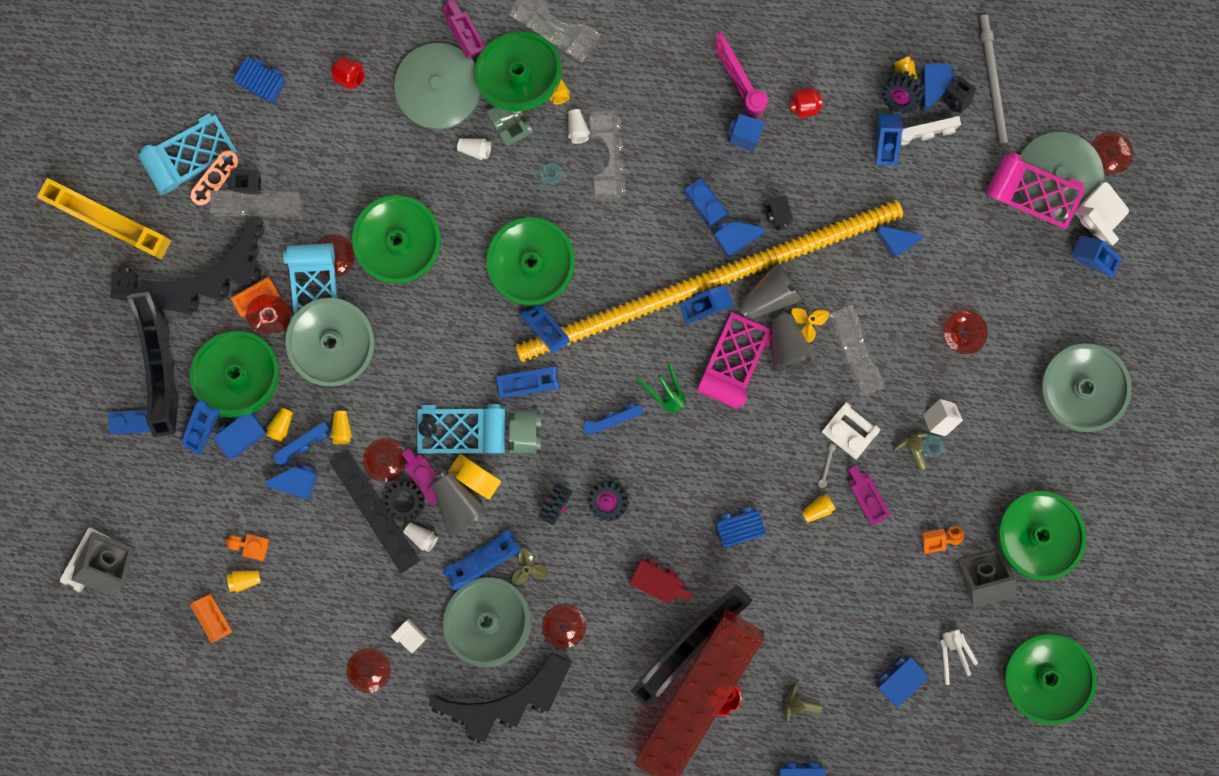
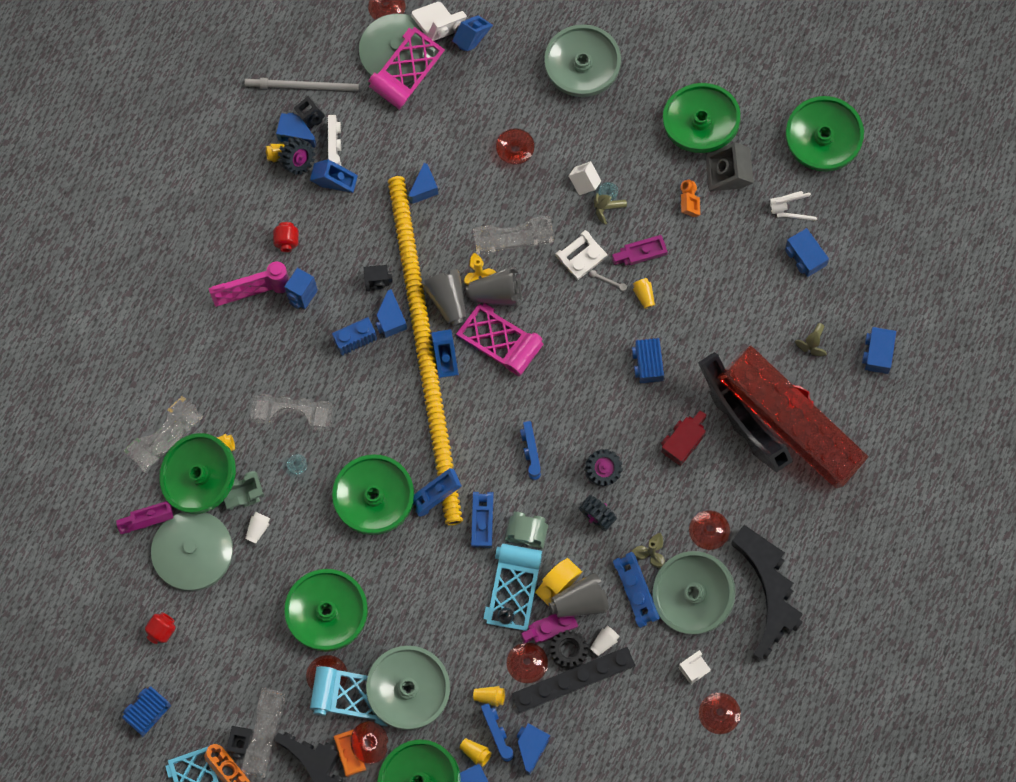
camera: 75 degrees left, 15 degrees down
(577, 127) = (261, 433): white cone -> none
(673, 401) = (524, 395): green plant -> none

